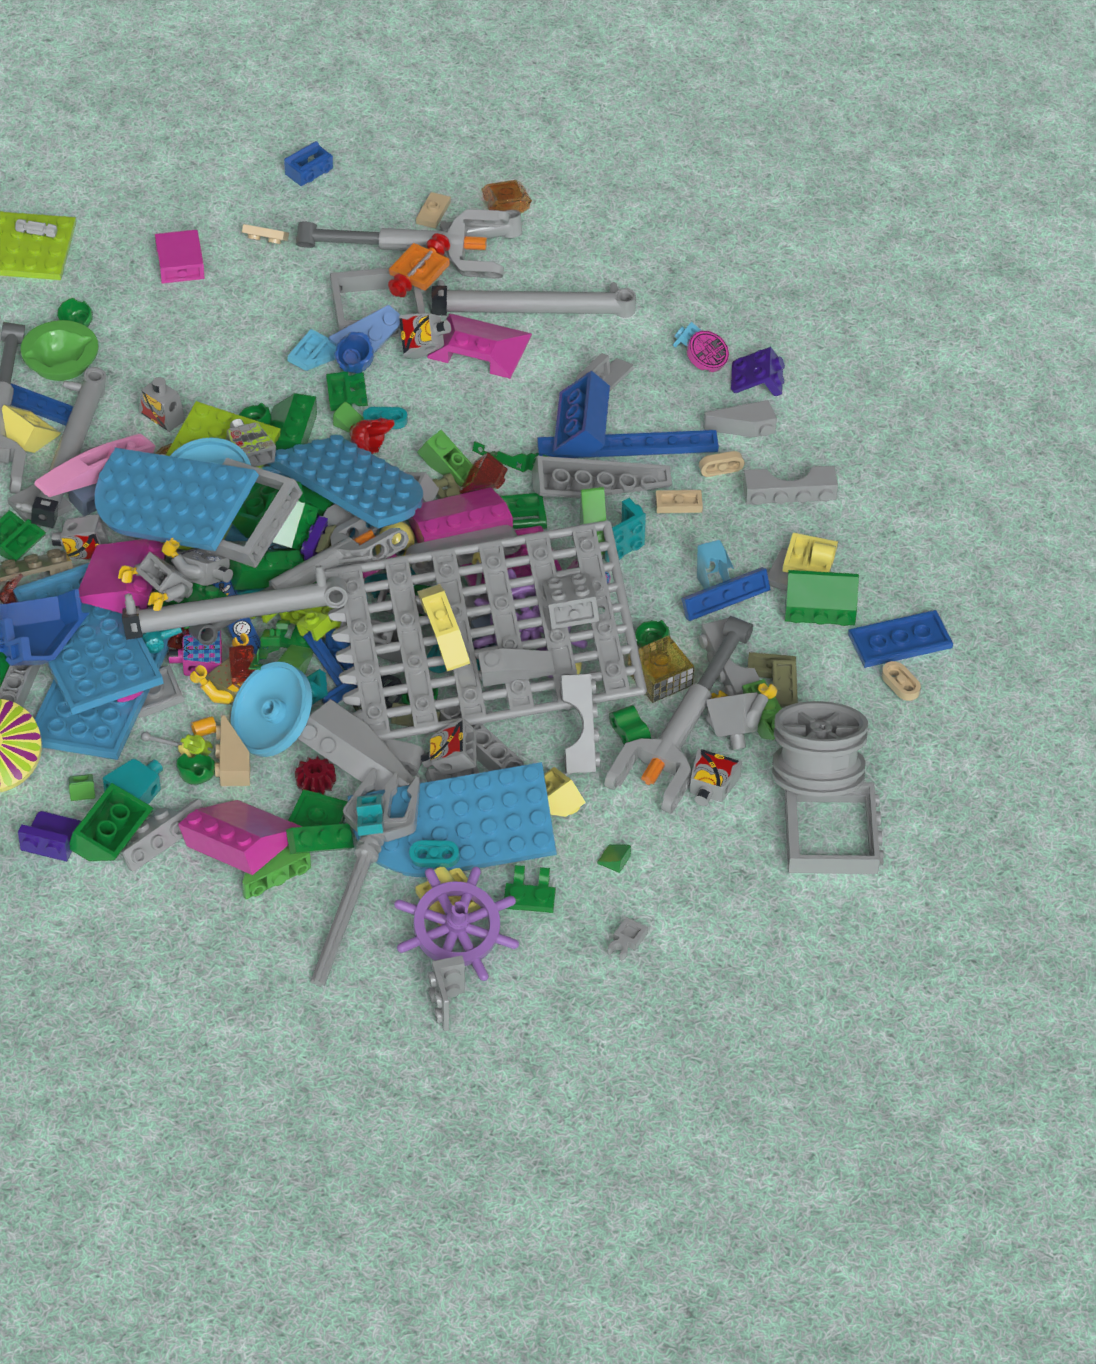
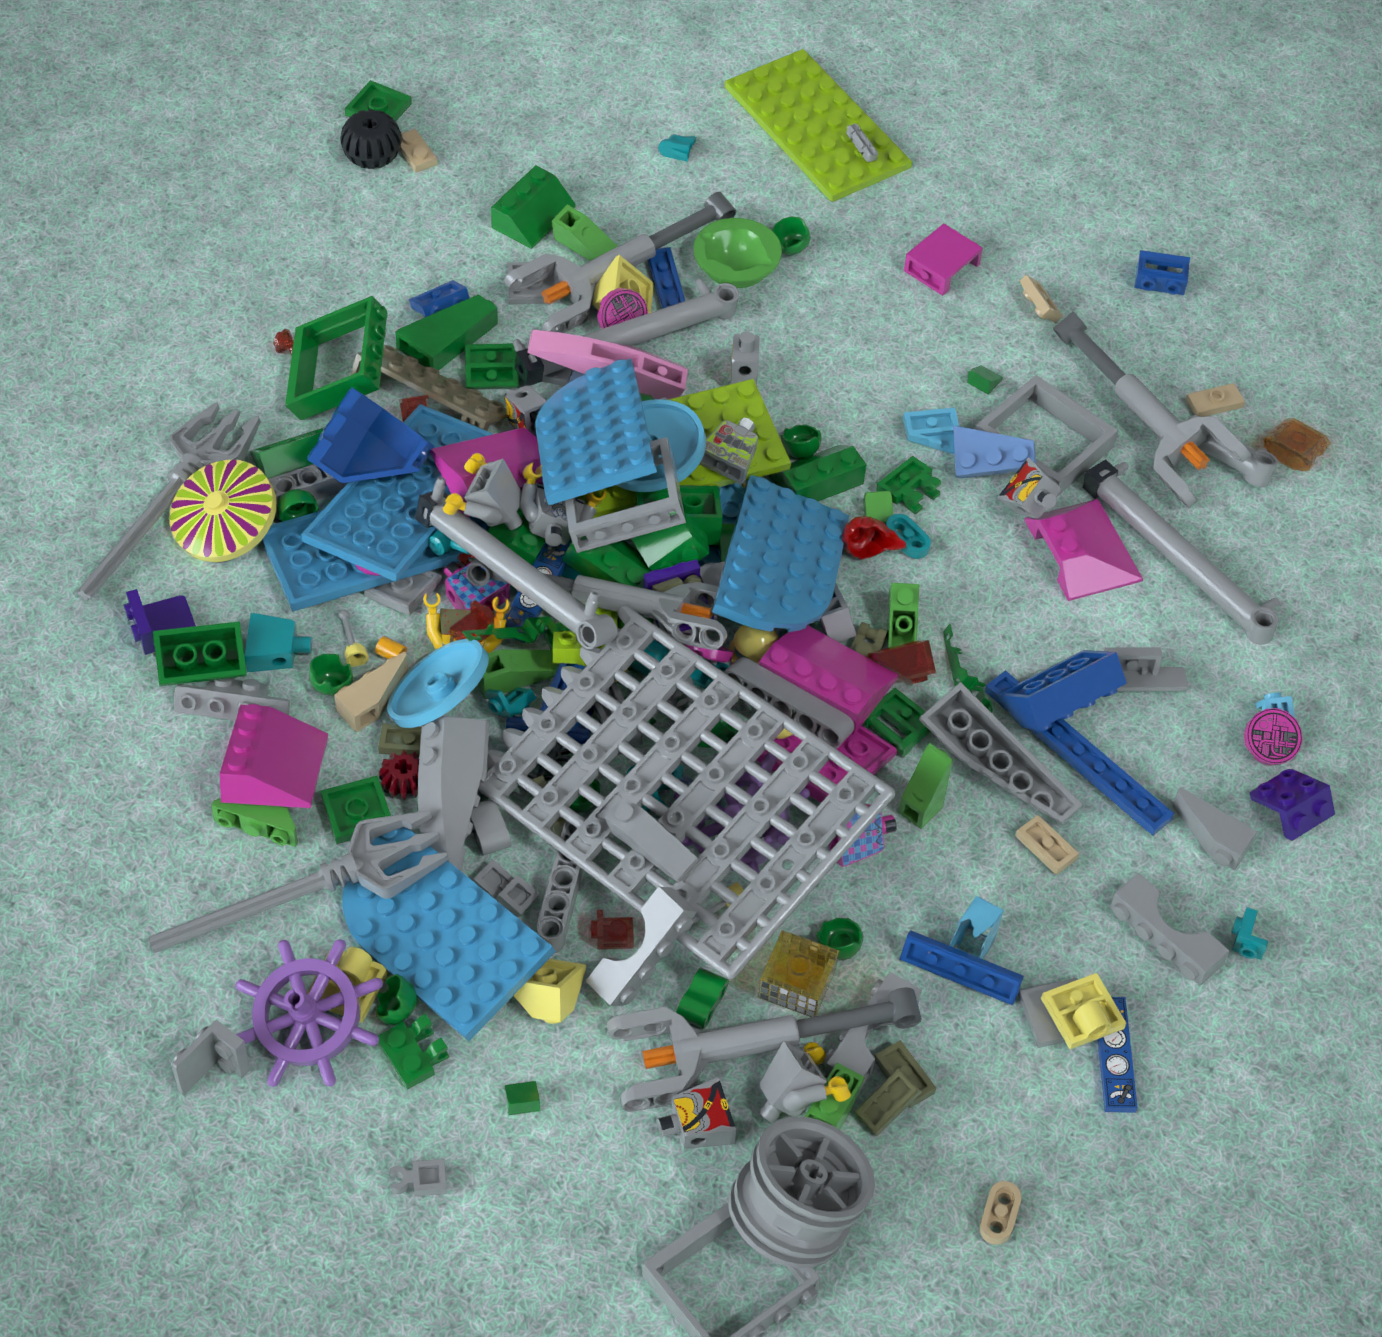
camera: 50 degrees right, 5 degrees up
(32, 700) = (296, 504): none -> green hair
(48, 434) = (620, 306): none -> tile
(81, 787) = (240, 605): bright green slope -> none
(196, 744) = (352, 655): lime axle -> none
(286, 762) = (395, 739): none -> olive plate
(298, 303) = (983, 379): none -> green slope
(319, 838) = (312, 825): green plate -> none
(354, 352) = (949, 457): blue hair -> none
(370, 814) = (368, 843): teal slope -> none
(419, 266) = (1112, 432): orange plate -> none
(435, 852) = (375, 935): teal plate -> none
(444, 627) = (616, 768): light yellow slope -> none
(452, 748) = (524, 861): light grey torso -> none
(492, 876) = (397, 1001): none -> green hair
(538, 743) = (612, 932): none -> clear red bracket
(571, 600) = (762, 827): light grey bracket -> none
(630, 533) = (946, 828): teal bracket -> none
(721, 463) = (1134, 848): tan plate -> none
(821, 597) = (1032, 1060): slope -> none
(826, 455) = (1245, 943): none -> teal bracket
(869, 577) = (1117, 1067): none -> tile
(900, 638) = (1063, 1174): blue tile -> none

